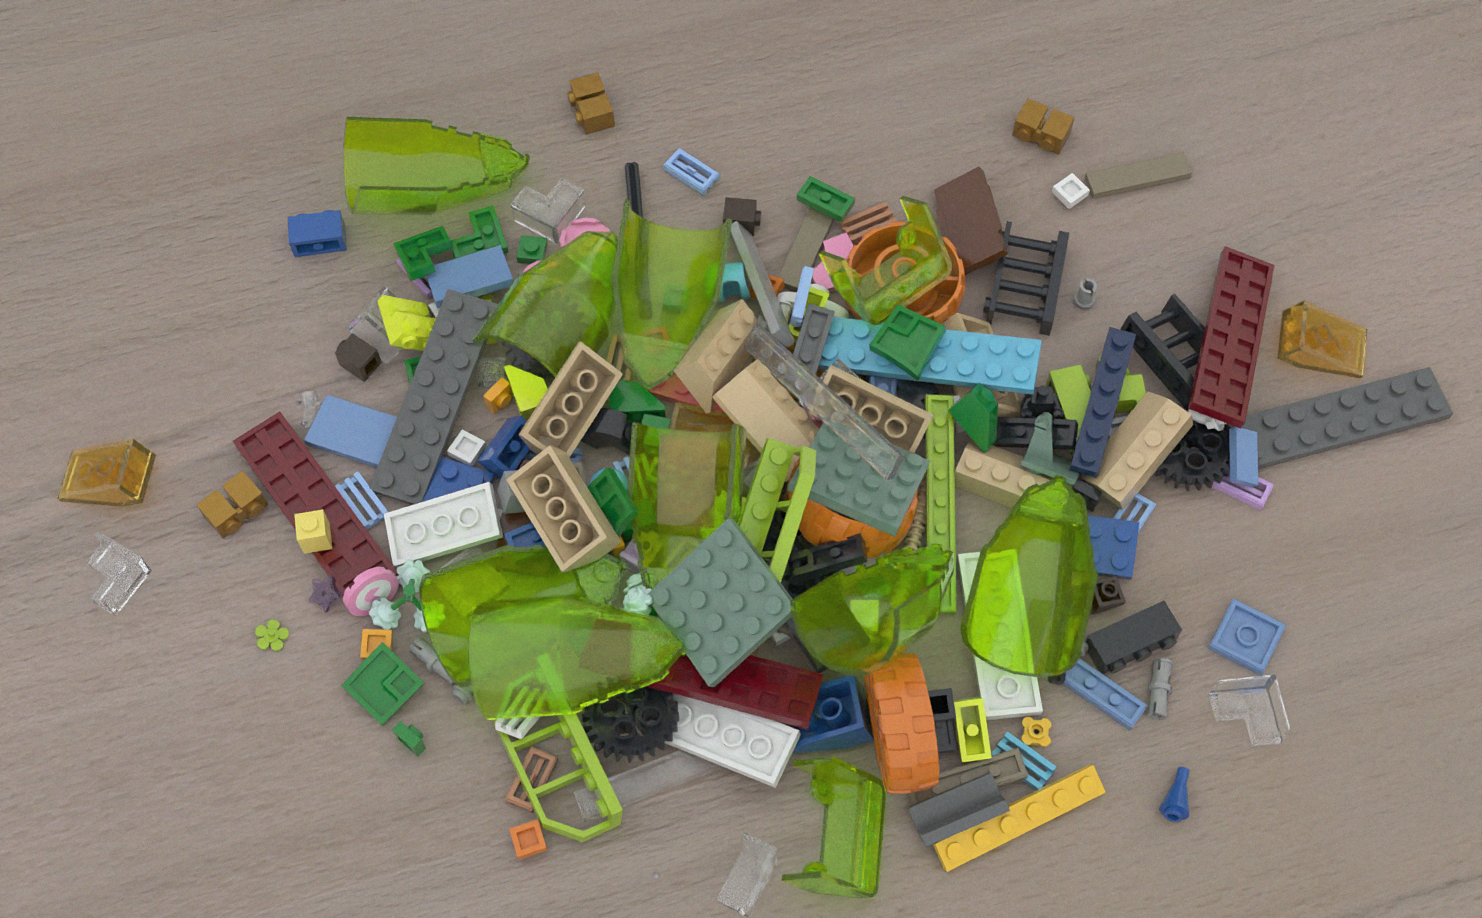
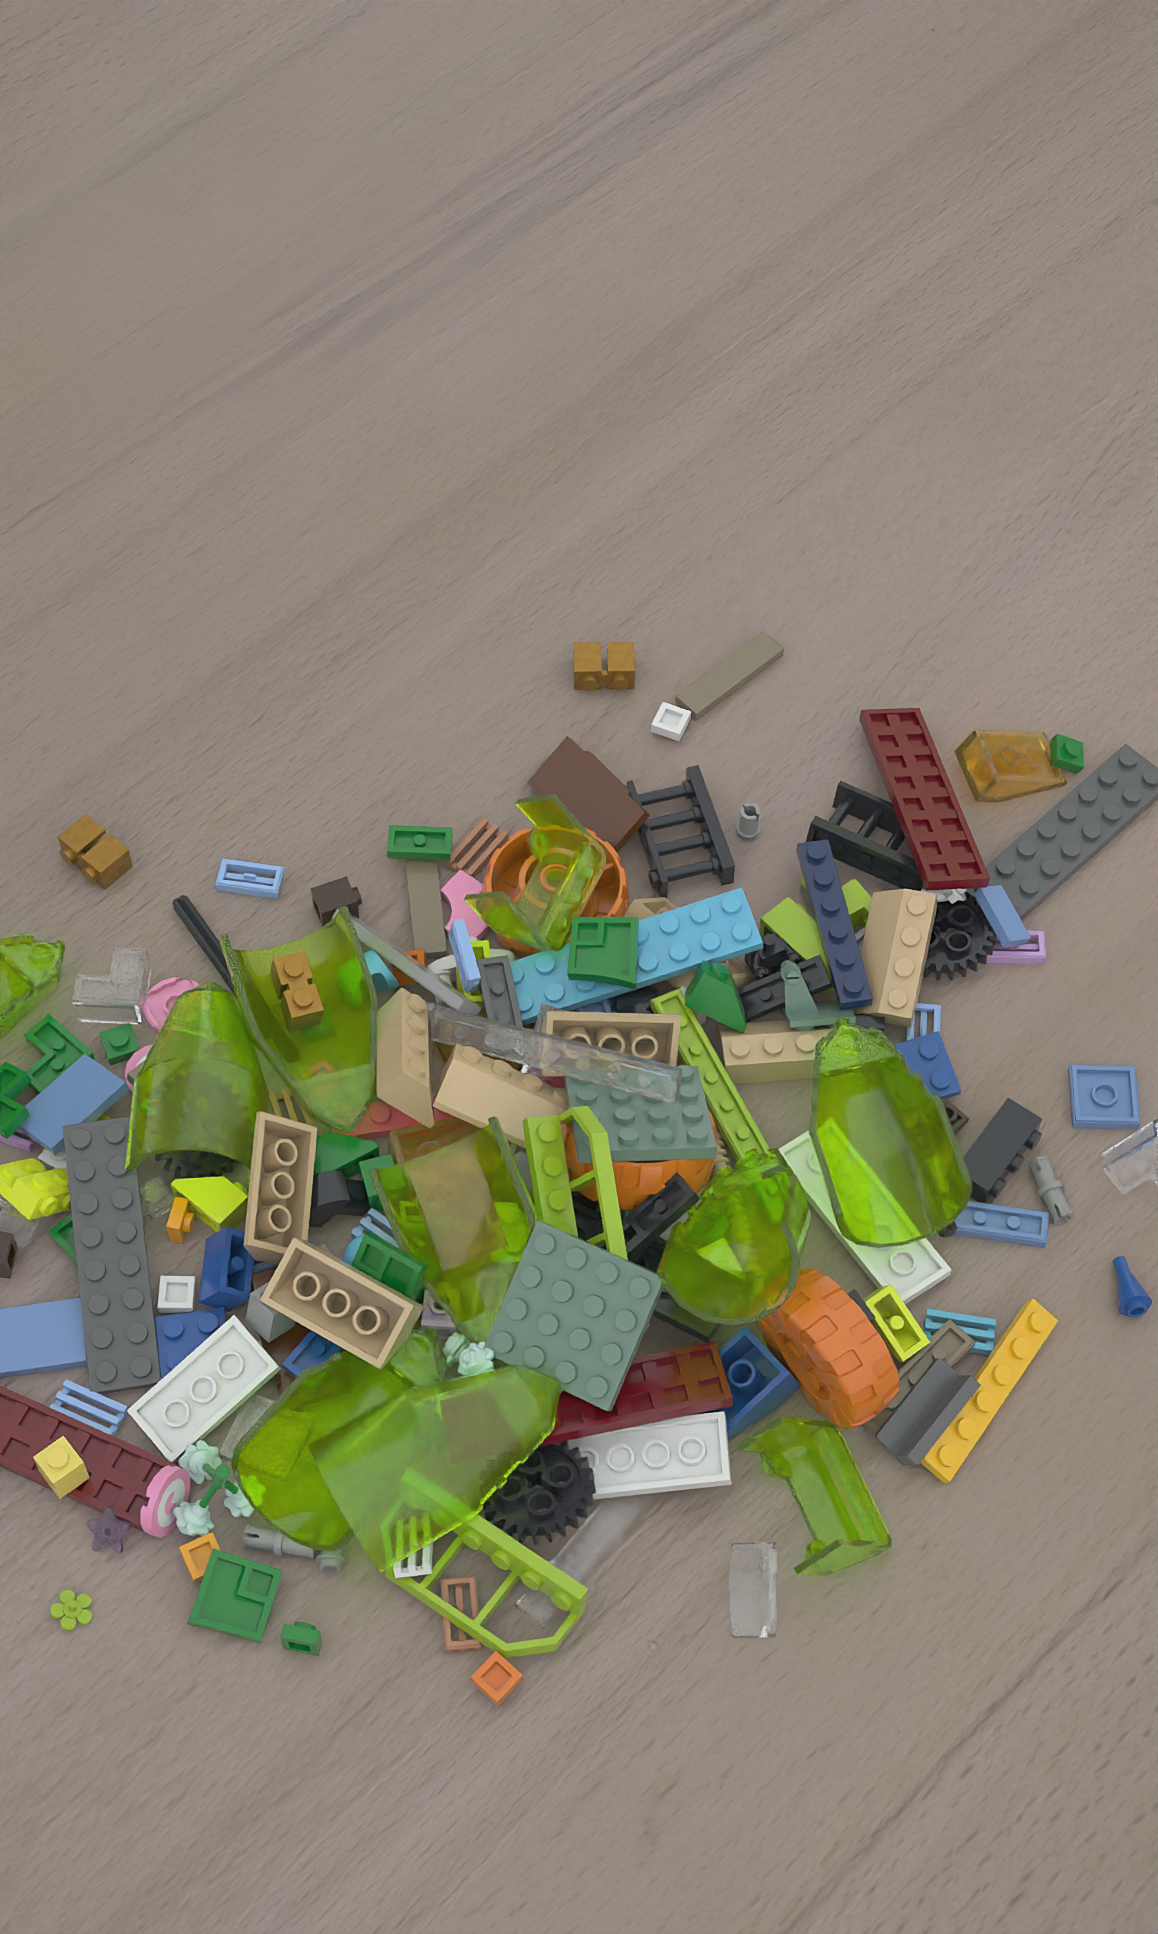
camera: 30 degrees left, 5 degrees down
(668, 267) = (301, 1001): none -> pearl gold piece
(1030, 738) = (952, 1303): yellow plate -> none
(1375, 353) = (1067, 753): none -> green plate

